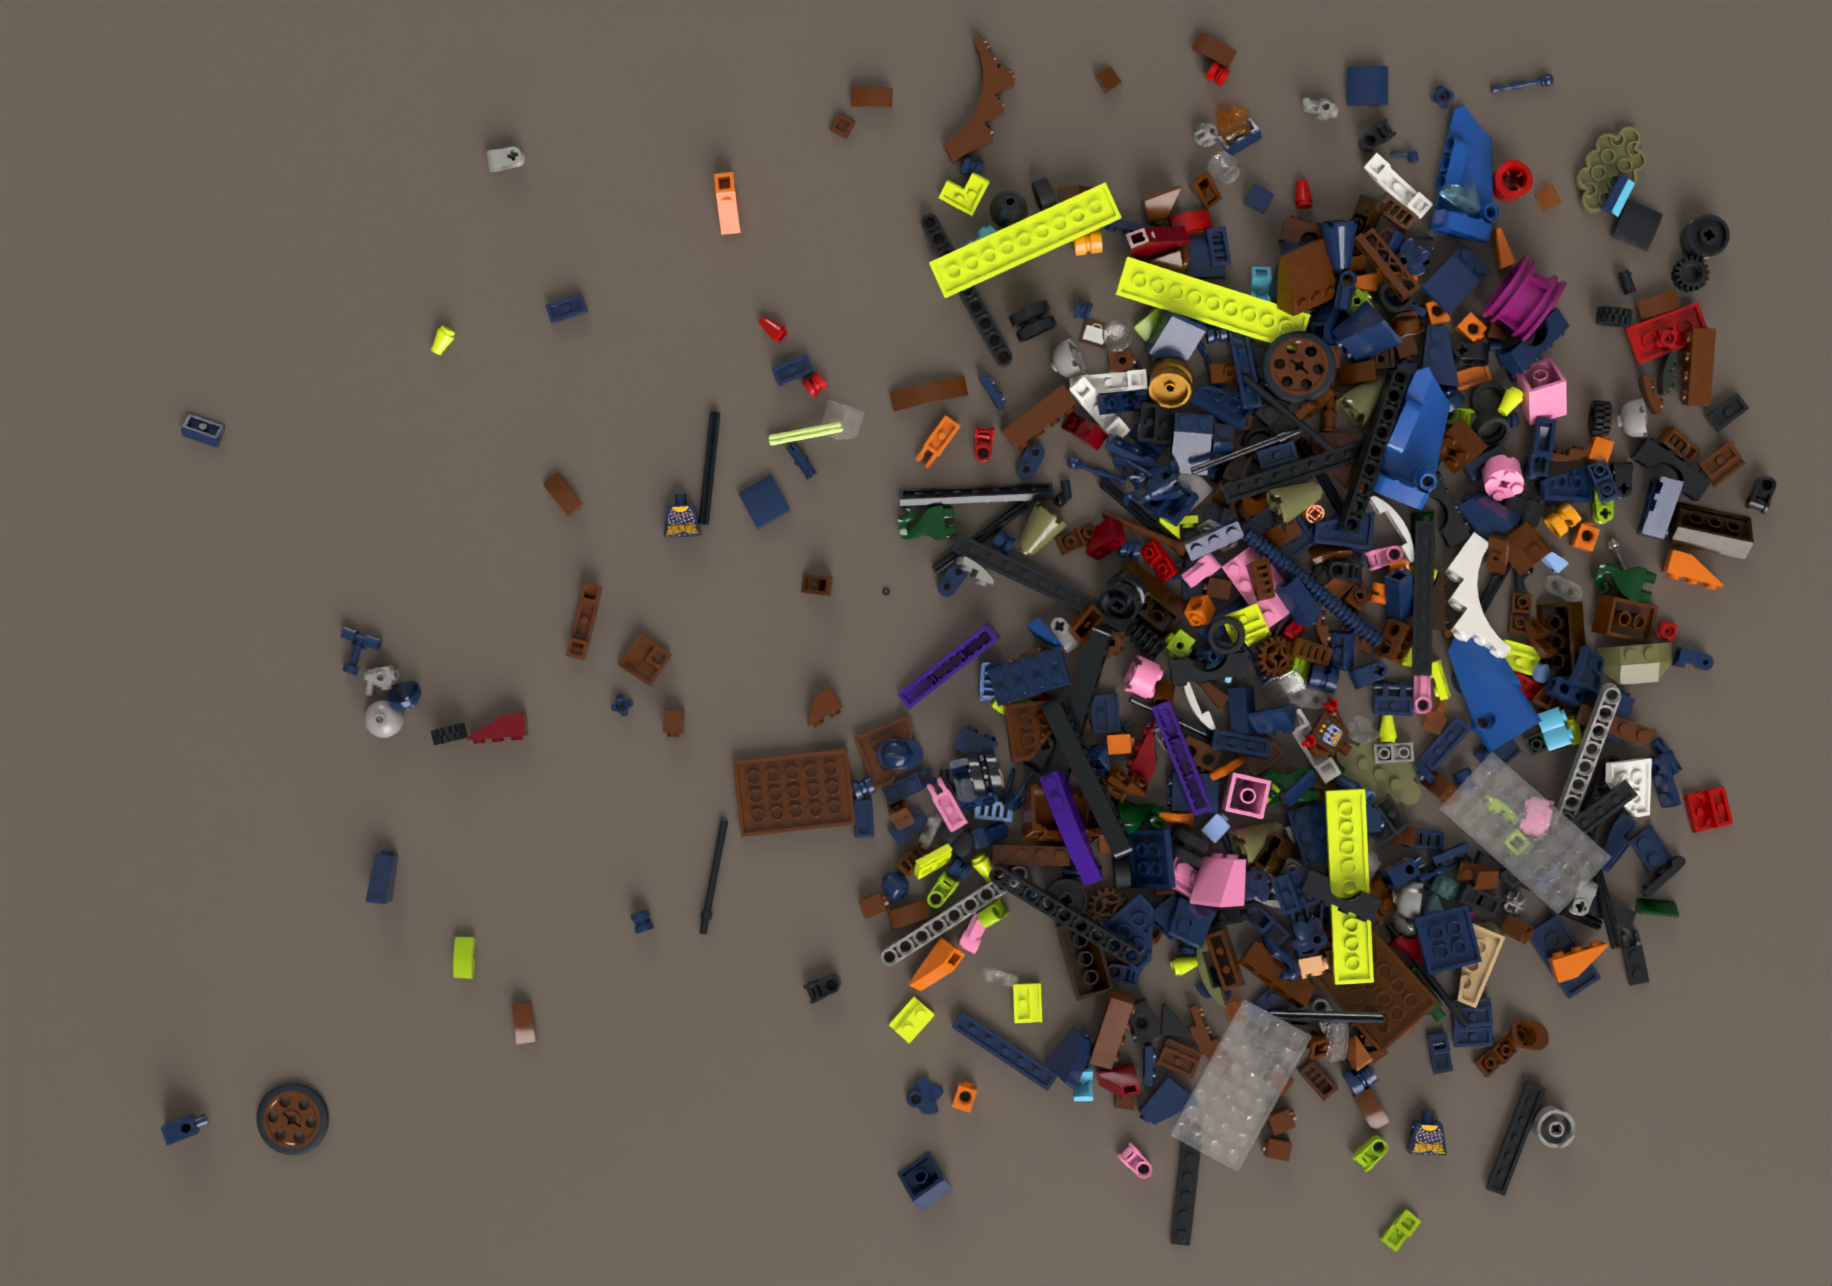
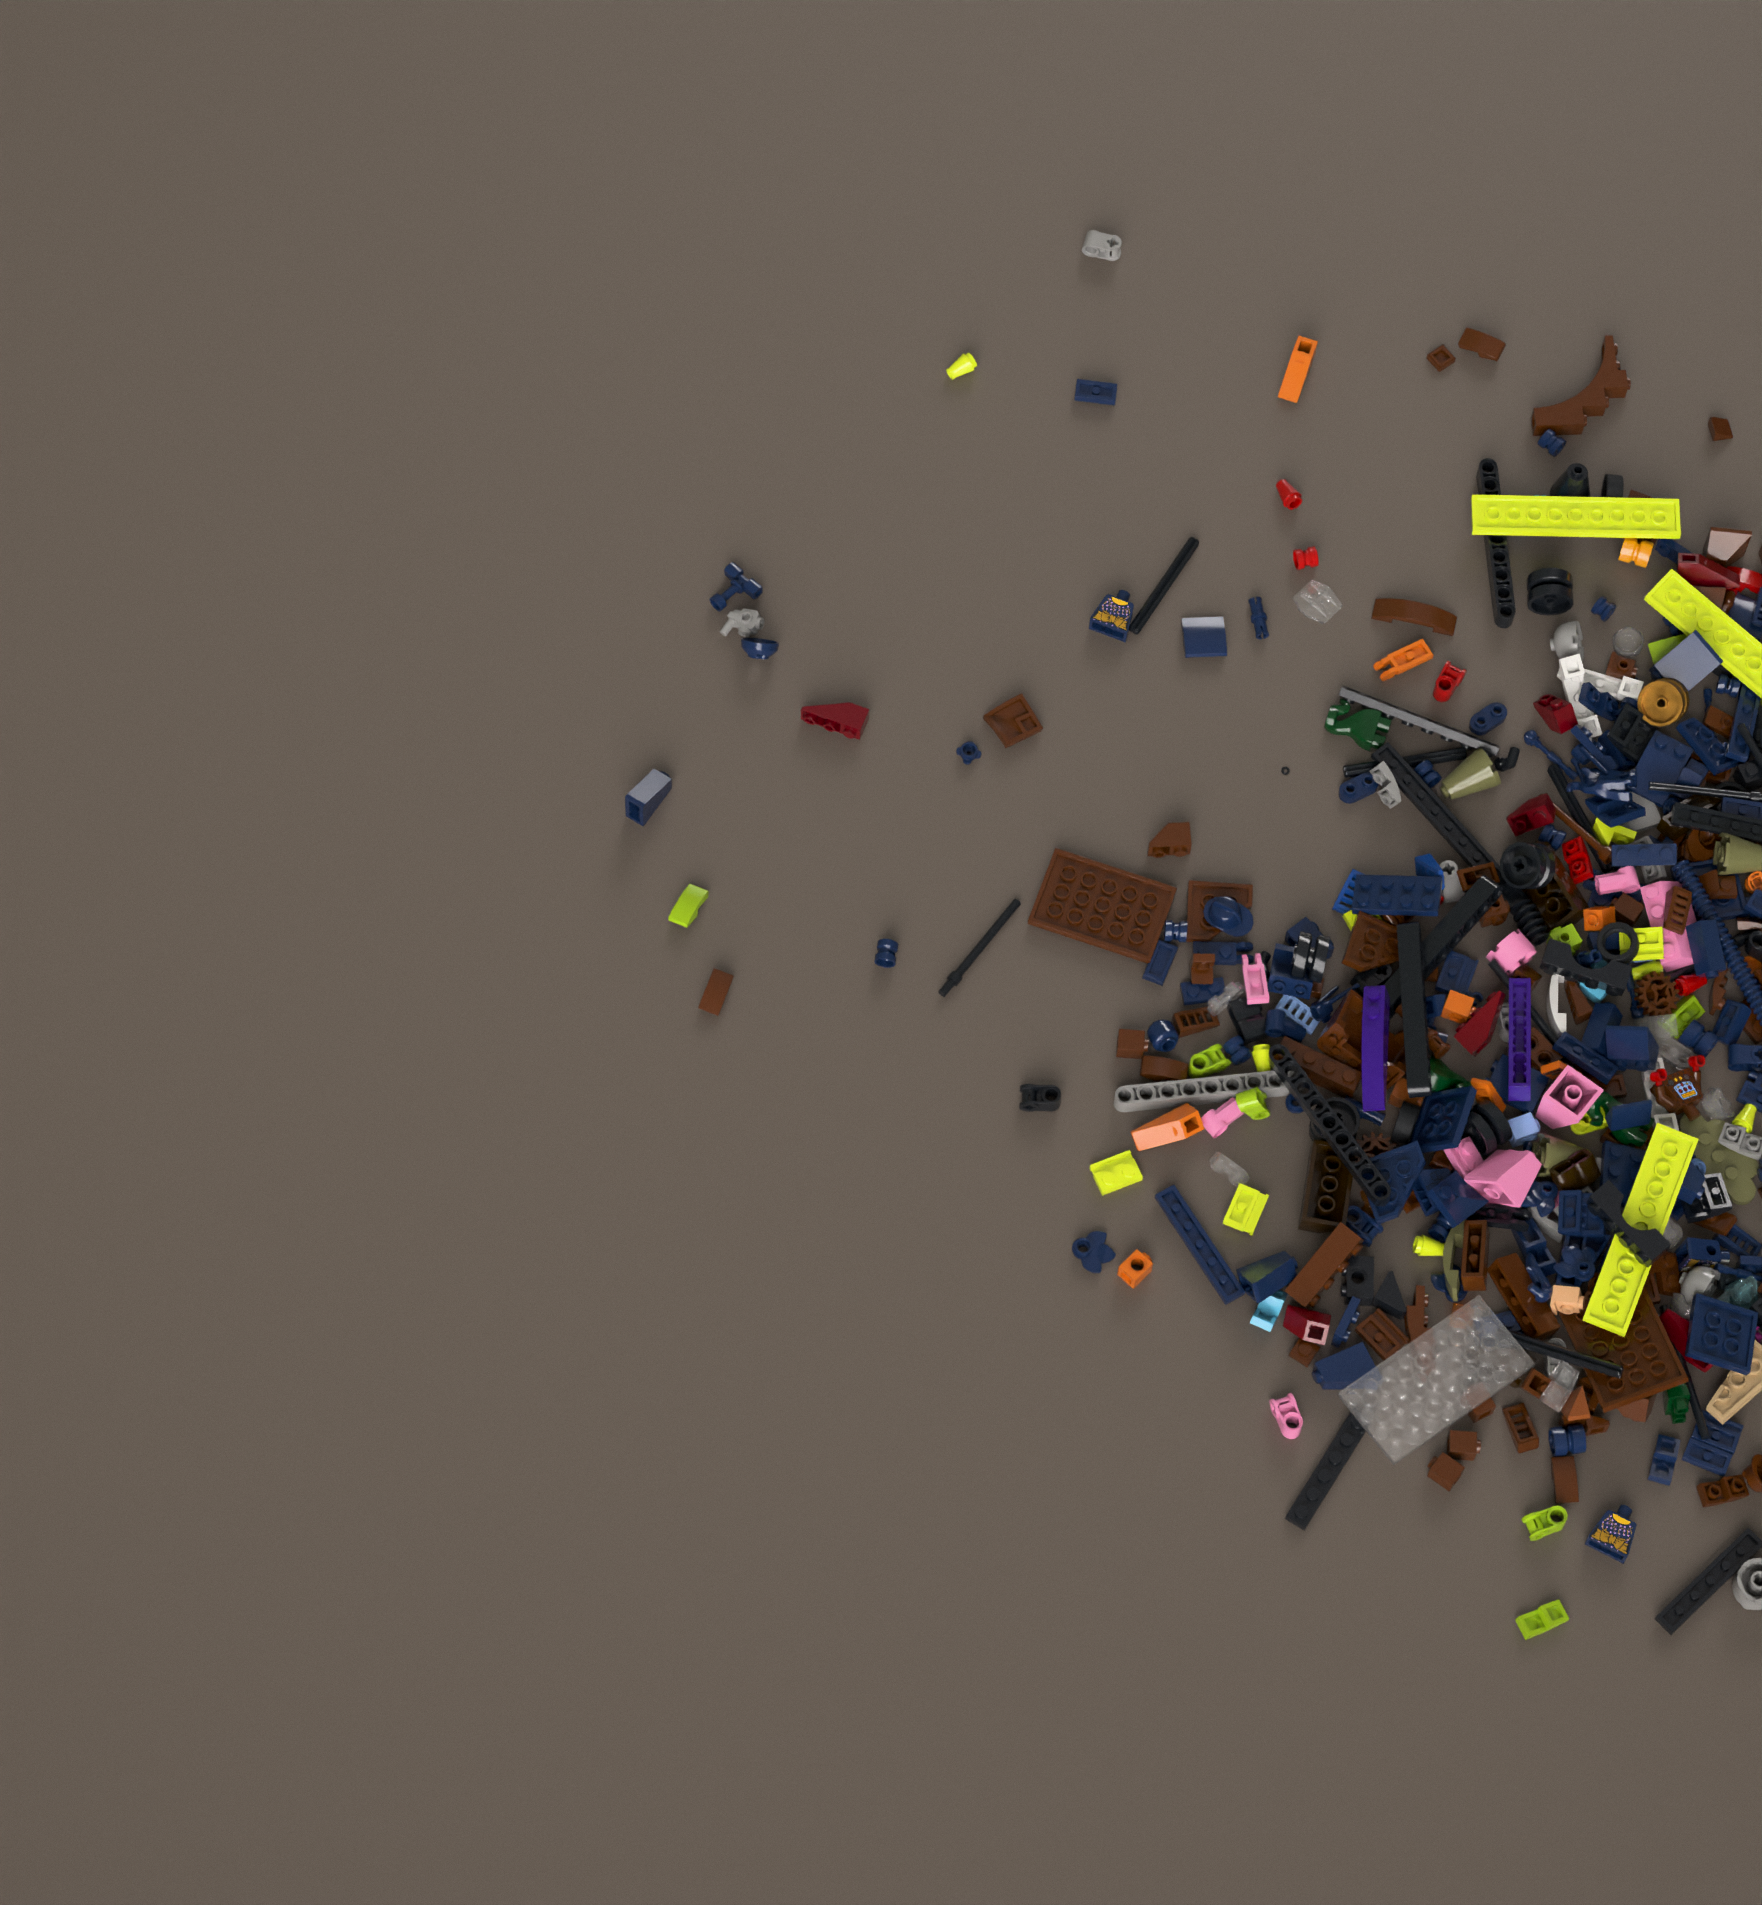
camera: 20 degrees right, 25 degrees down
(176, 1131) = (319, 929): dark blue torso -> none
(202, 430) = (688, 344): dark blue slope -> none
(289, 1144) = (443, 1002): wedge -> none
(383, 719) = (725, 660): light grey cylinder -> none
(449, 734) = (785, 696): black tyre -> none
(563, 494) = (1008, 545): reddish brown slope -> none
(584, 620) = (973, 660): reddish brown slope -> none
(673, 722) = (1013, 788): reddish brown brick -> none
(792, 370) = (1289, 537): dark blue plate -> none
(805, 433) = (1275, 594): yellowish green axle -> none
(817, 584) = (1221, 731): reddish brown slope -> none
(925, 1182) = (1053, 1333): dark blue slope -> none
(933, 861) = (1214, 1025): neon yellow plate -> none
(949, 665) = (1320, 858): dark purple slope -> none
(967, 198) = (1536, 465): neon yellow plate -> none
(988, 384) = (1478, 634): dark blue plate -> none
(1039, 417) = (1515, 682): reddish brown brick -> none
(1075, 538) = (1499, 806): reddish brown slope -> none
(1092, 333) = (1602, 636): sticker -> none
(1133, 784) = (1456, 1042): reddish brown slope -> none
(1322, 654) = (1708, 1012): reddish brown slope -> none

